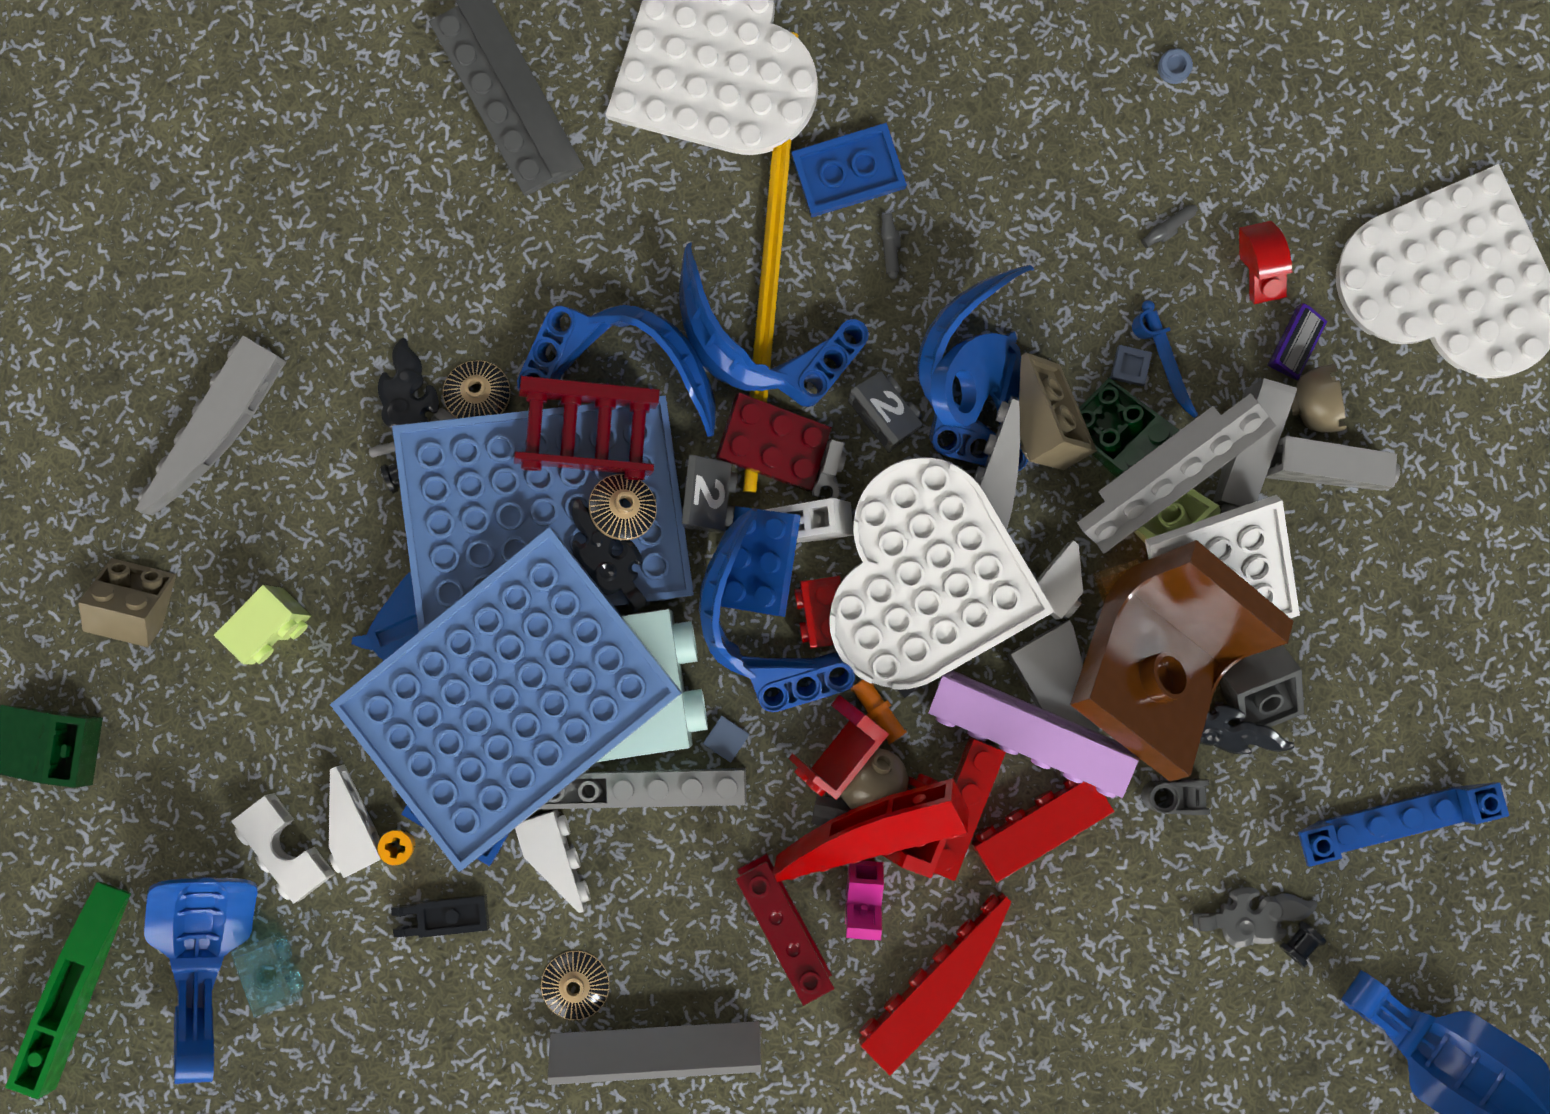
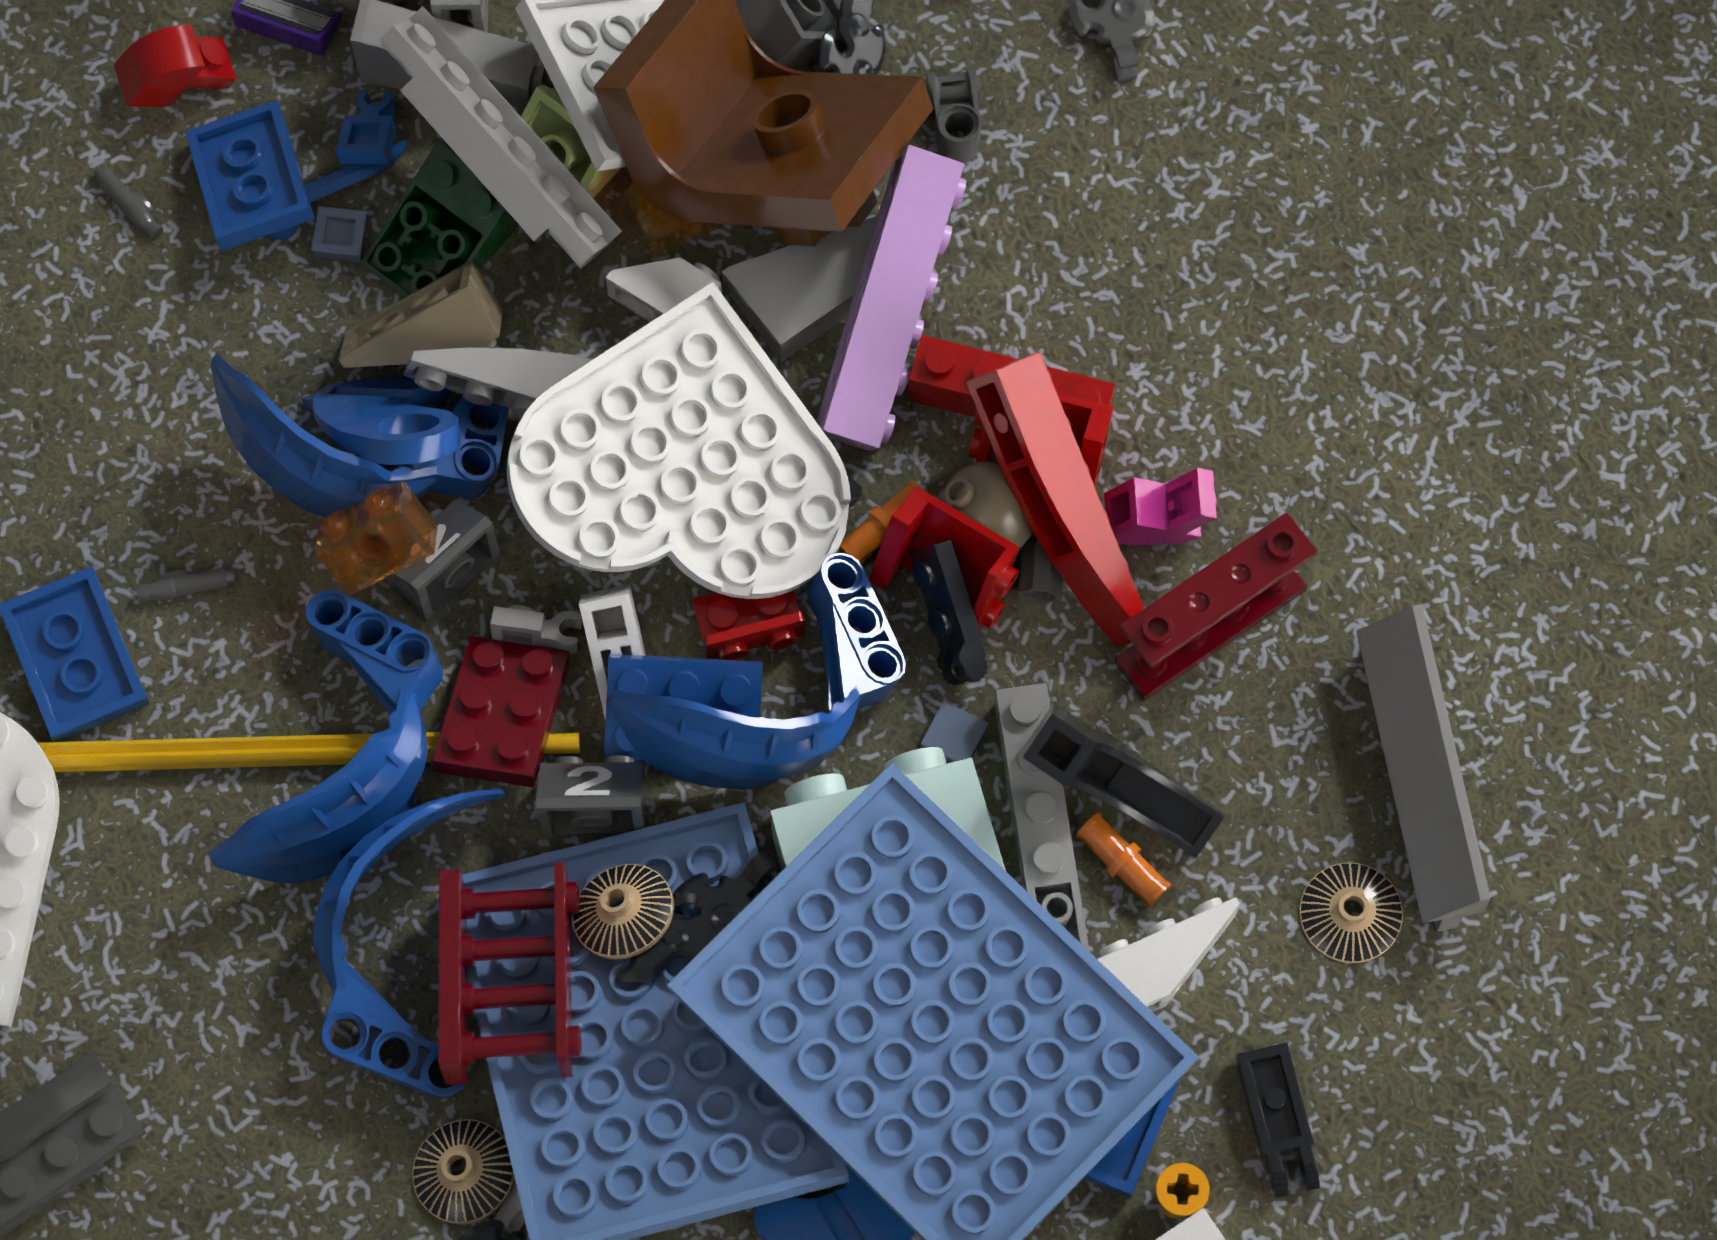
camera: 95 degrees left, 15 degrees down
(625, 839) = (1123, 860): none -> orange pin
(679, 836) = (1119, 776): none -> black arch
(805, 746) = (949, 613): none -> black hinge
(895, 367) = (360, 560): none -> clear orange brick
(933, 991) = (1275, 401): red slope -> none
(1040, 828) = (1023, 284): red brick -> none
(1177, 306) = (249, 175): none -> blue plate
(1200, 389) = (370, 135): none -> blue plate

